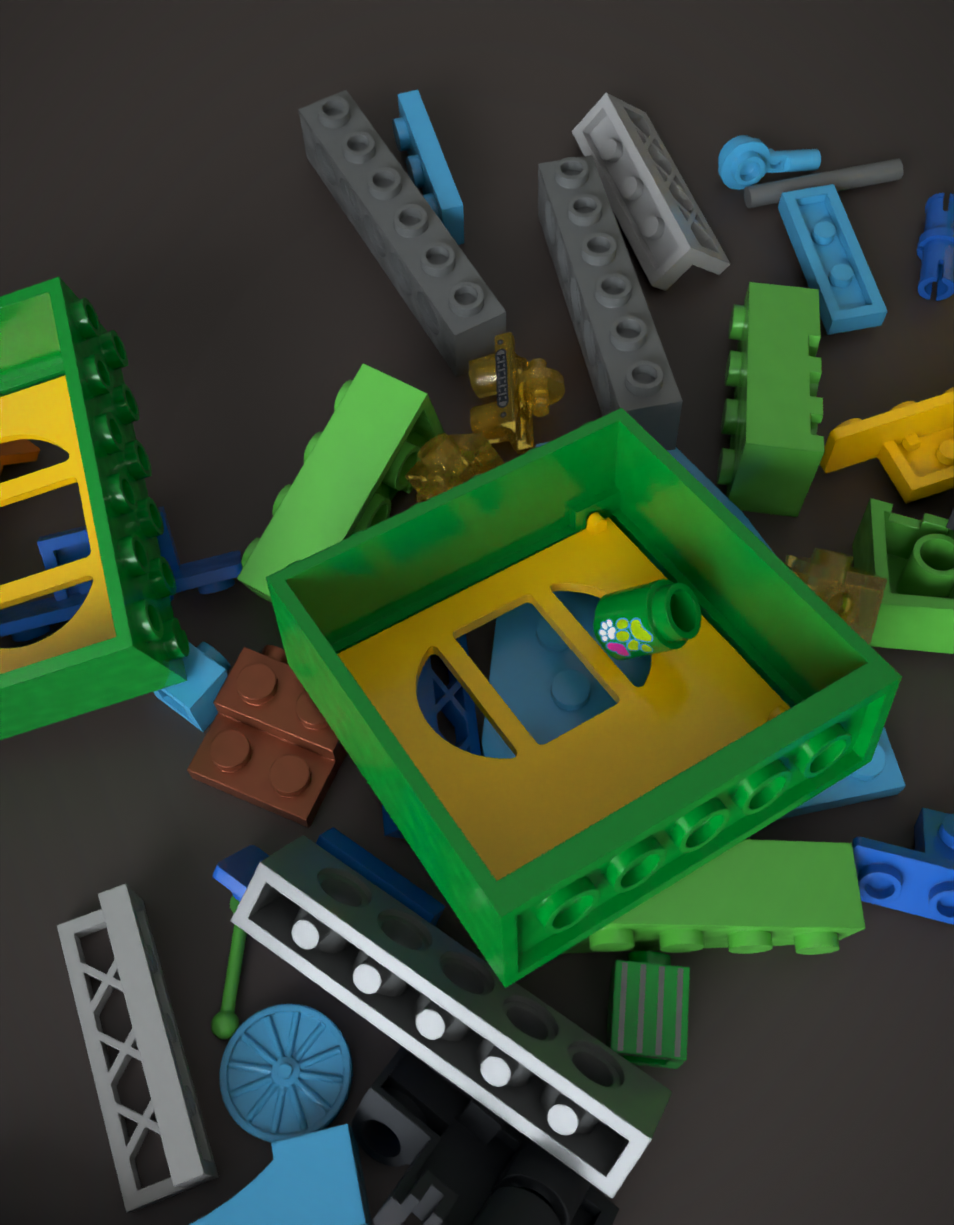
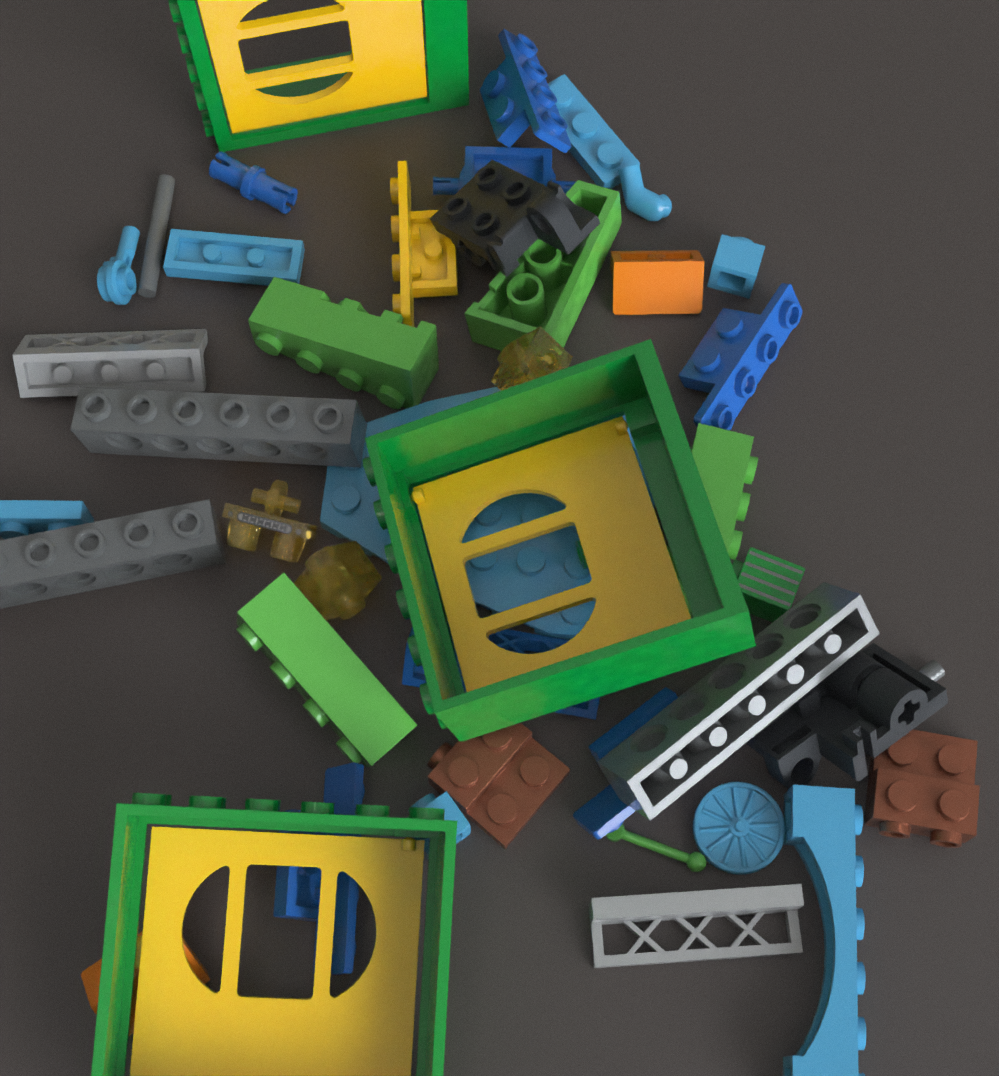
camera: 75 degrees left, 5 degrees up
(647, 619) = (529, 481): green brick -> none

